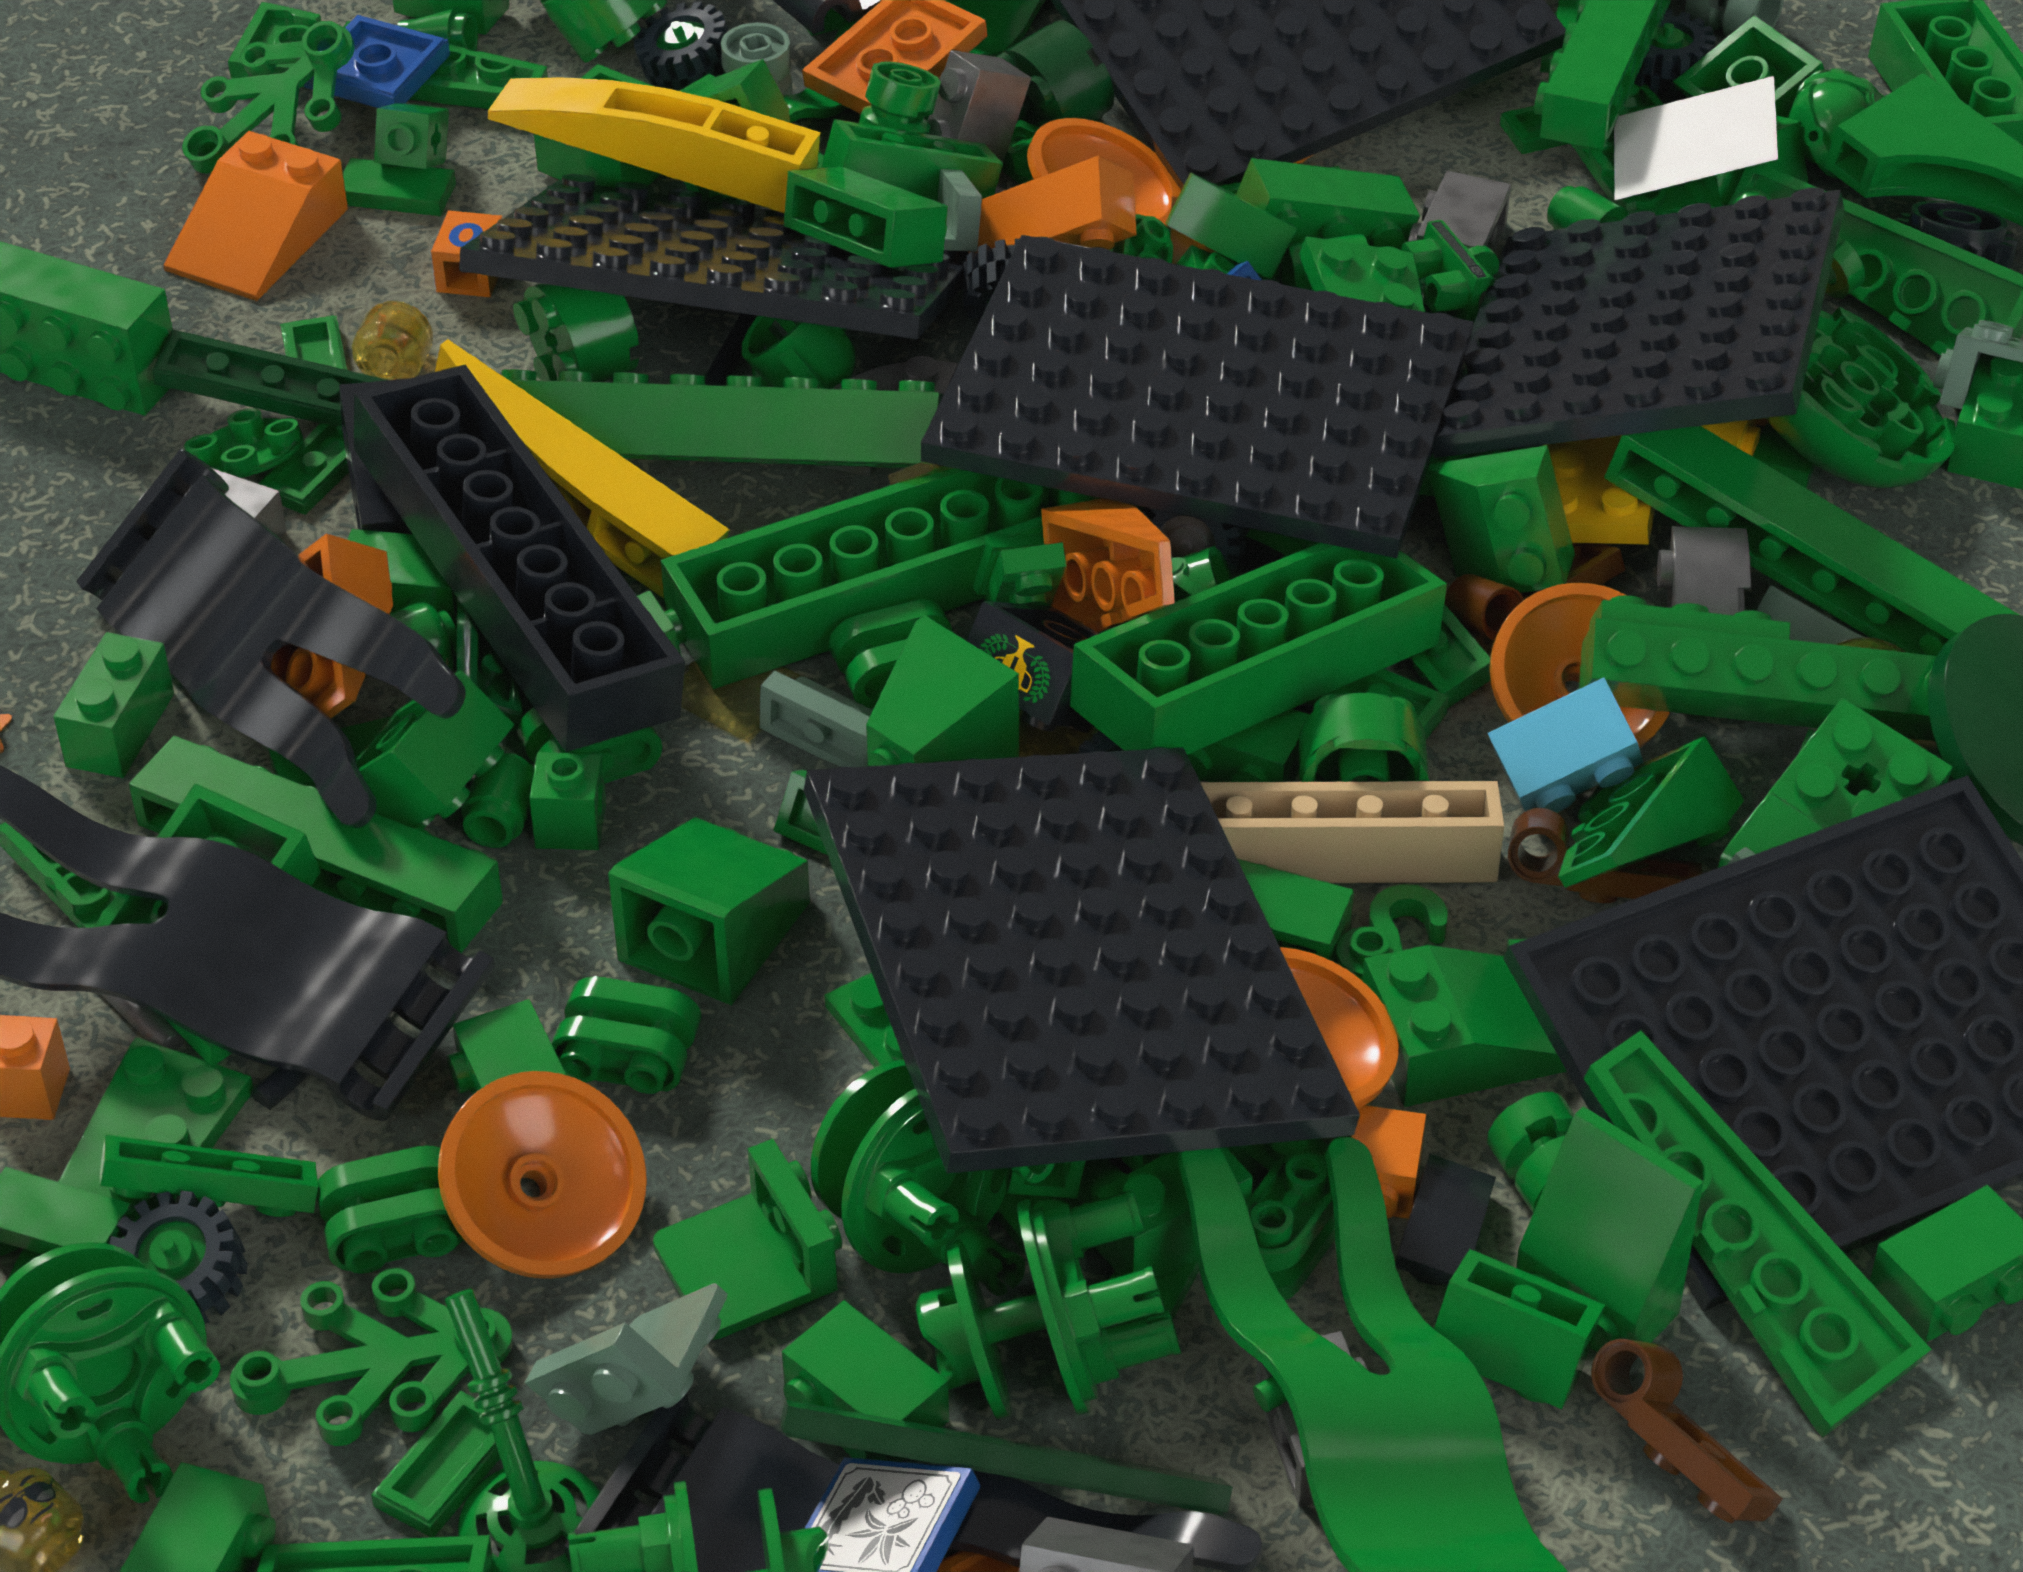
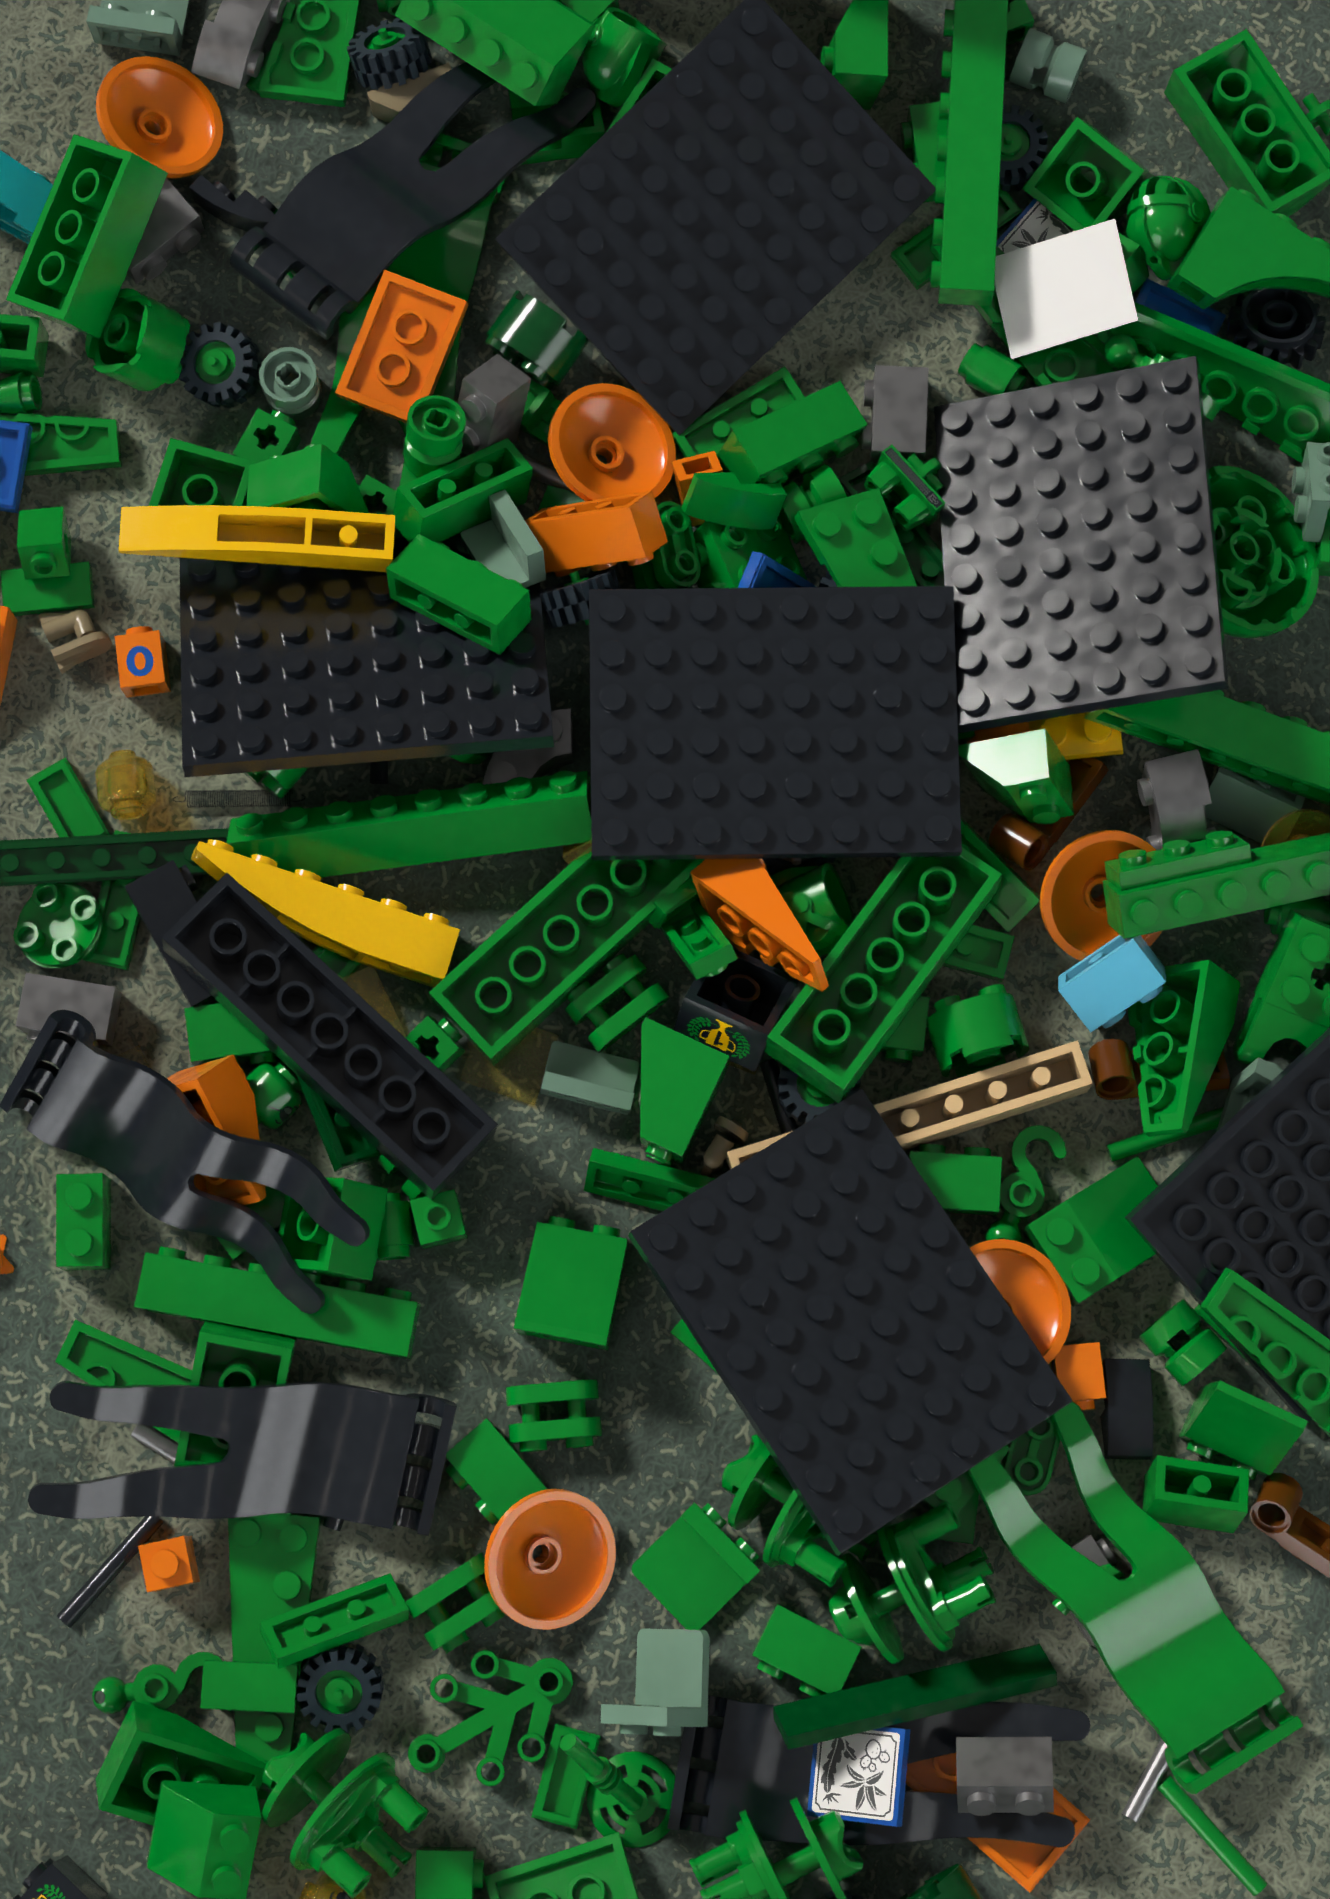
camera: 15 degrees left, 35 degrees up
(402, 230) = (89, 641): none -> dark tan piece

